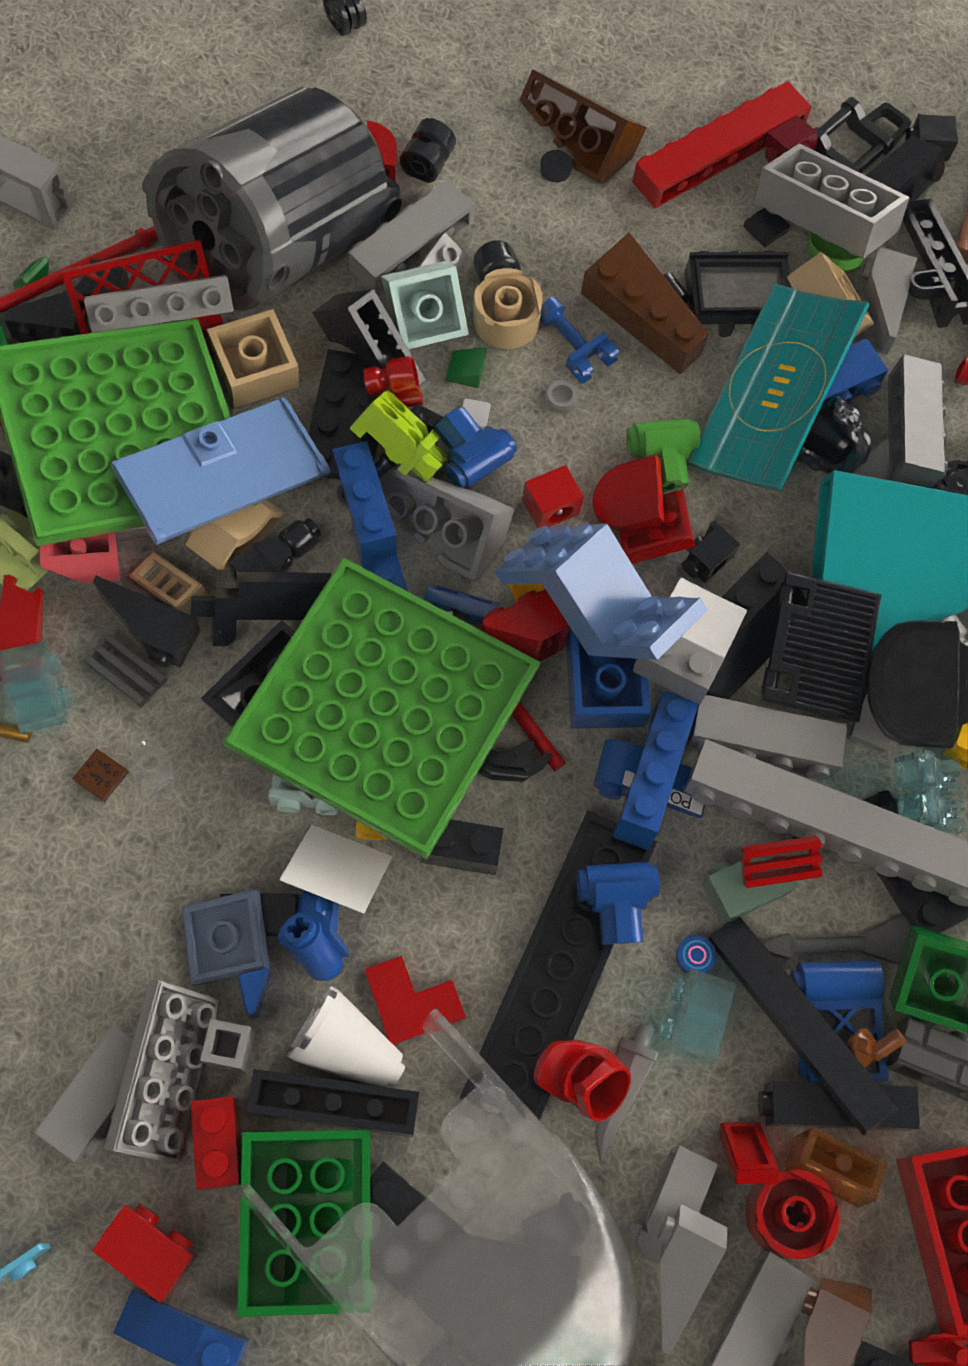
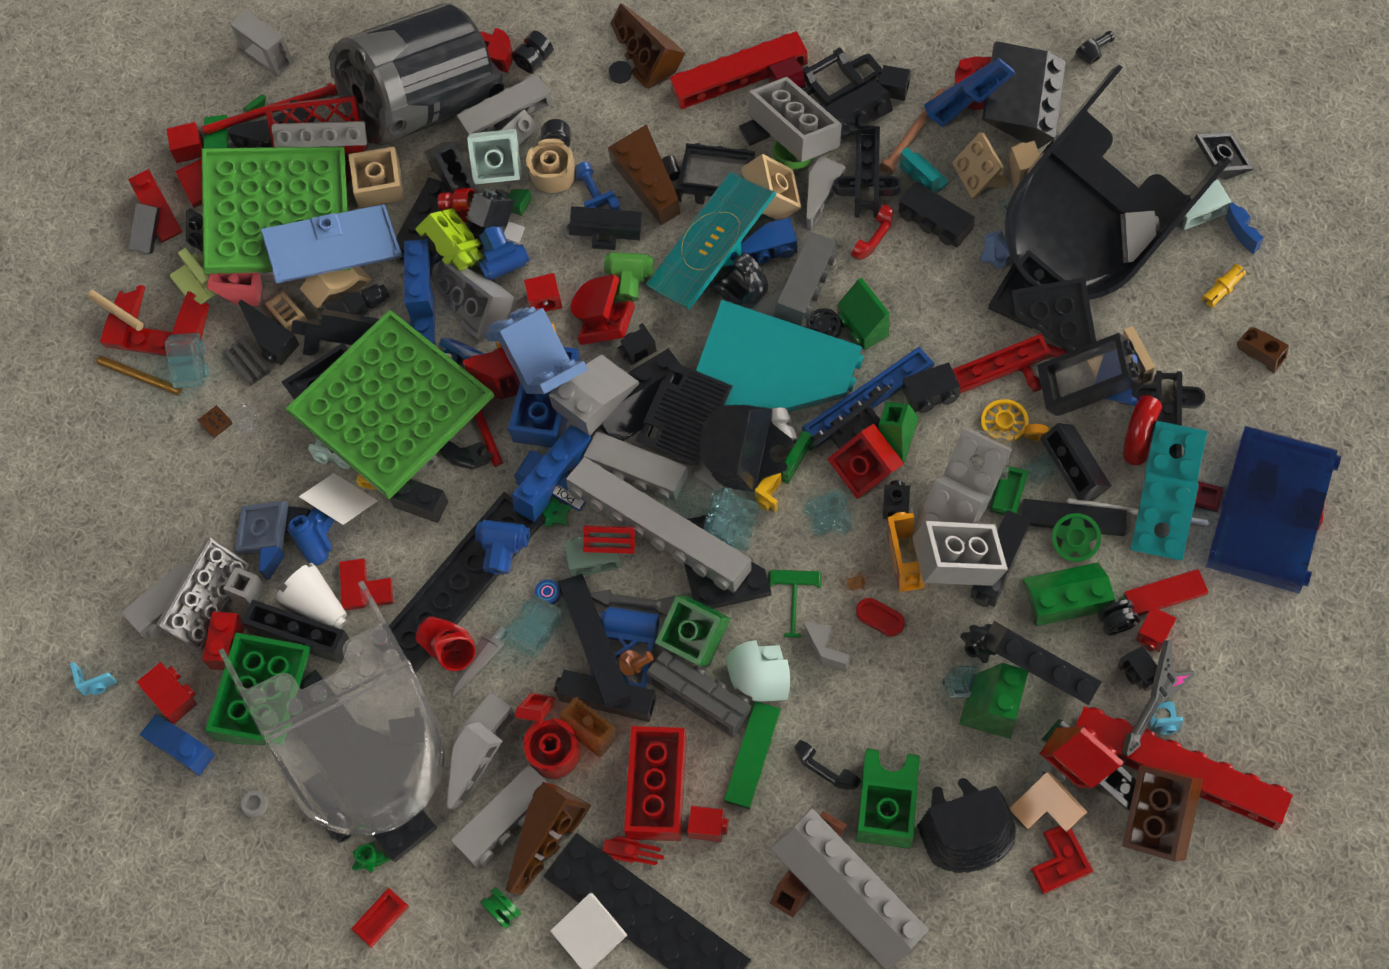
camera: 30 degrees right, 5 degrees down
(443, 382) = (490, 208): none -> black brick
(621, 379) = (595, 221): none -> black piece
(678, 835) = (560, 518): none -> green plate

